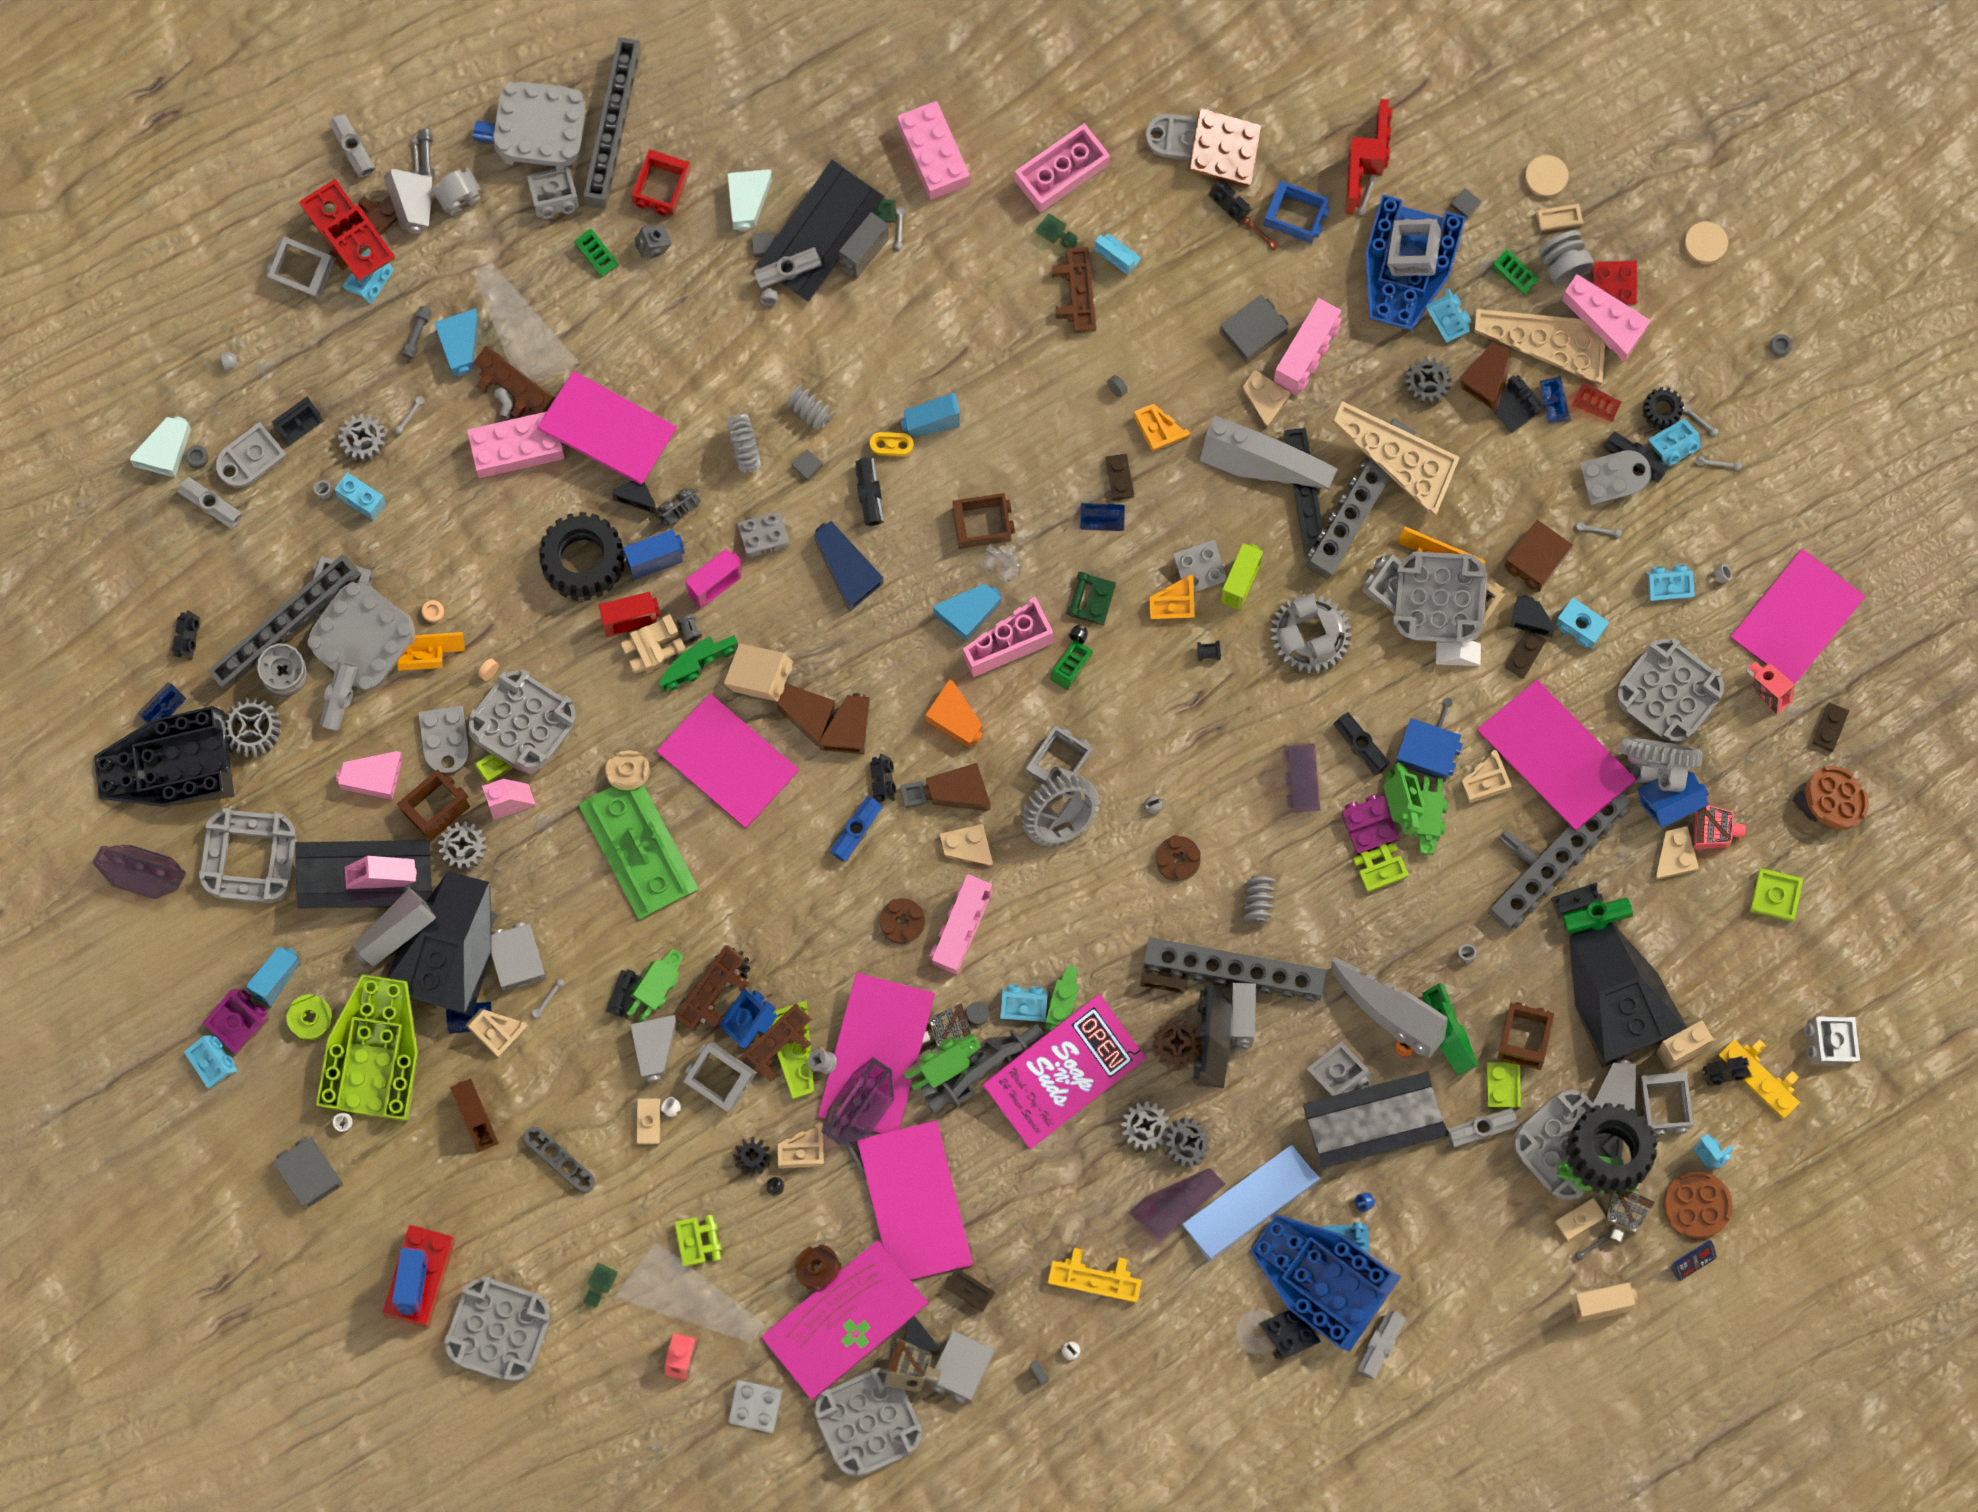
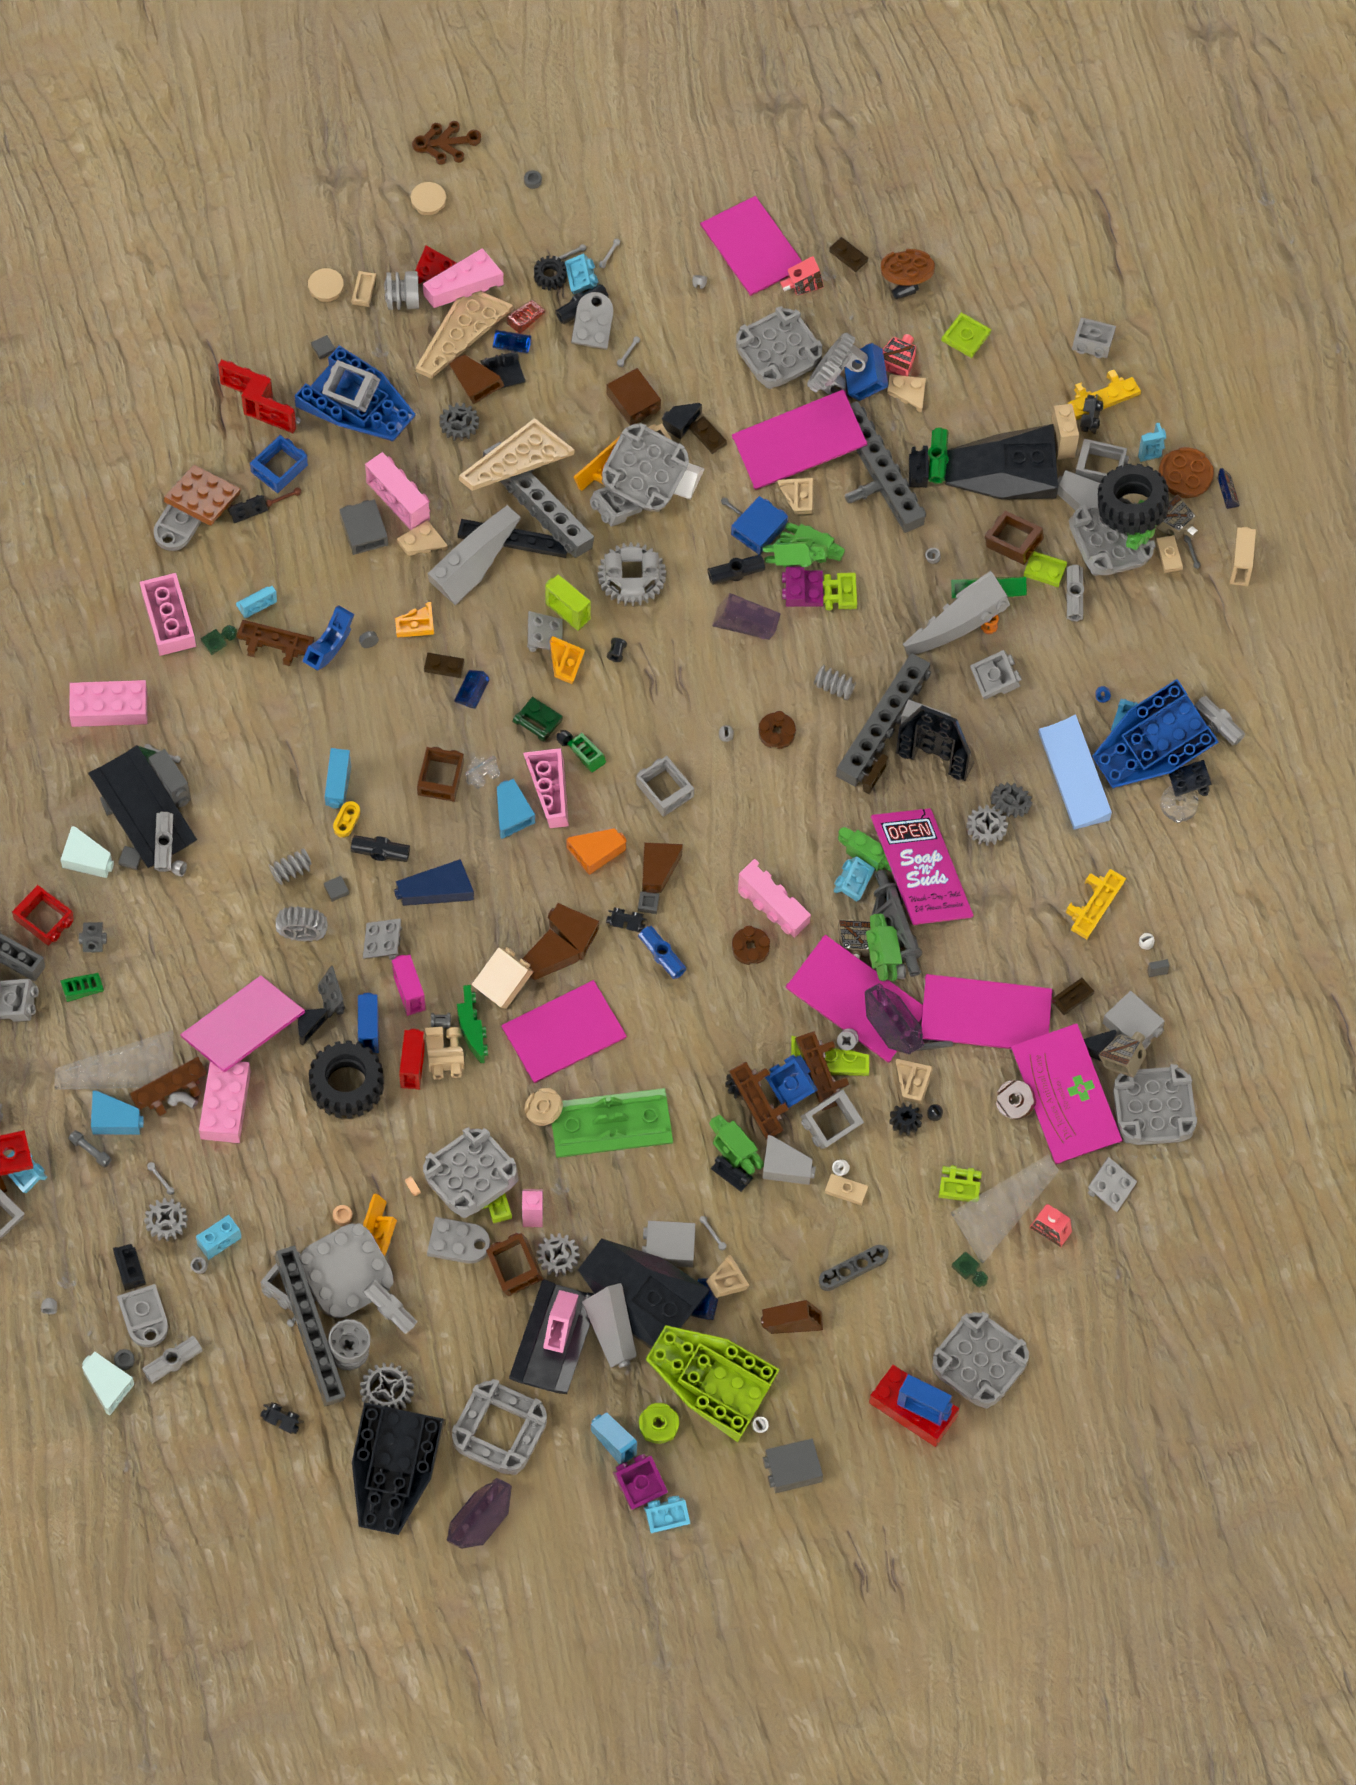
camera: 70 degrees left, 10 degrees down
(162, 704) = (335, 1458): clear blue slope -> none
(371, 775) = (468, 1306): bright pink slope -> none
(967, 844) = (706, 877): tan wing -> none
(977, 1013) = (848, 913): dark grey tile -> none
(1041, 819) = (706, 791): light grey piece -> none
(1095, 347) = (331, 641): none -> blue arch
(1168, 1044) = (928, 789): reddish brown gear -> none
(1170, 1207) = (1057, 827): clear purple wedge -> none
(1374, 1120) = (1043, 661): hinge -> none
(1449, 317) = (415, 386): medium azure bracket -> none
(1519, 267) = (393, 340): green slope -> none
(1577, 612) = (705, 378): medium azure brick -> none
(1670, 582) = (692, 316): medium azure bracket -> none
(1789, 232) = (444, 142): none -> reddish brown plant

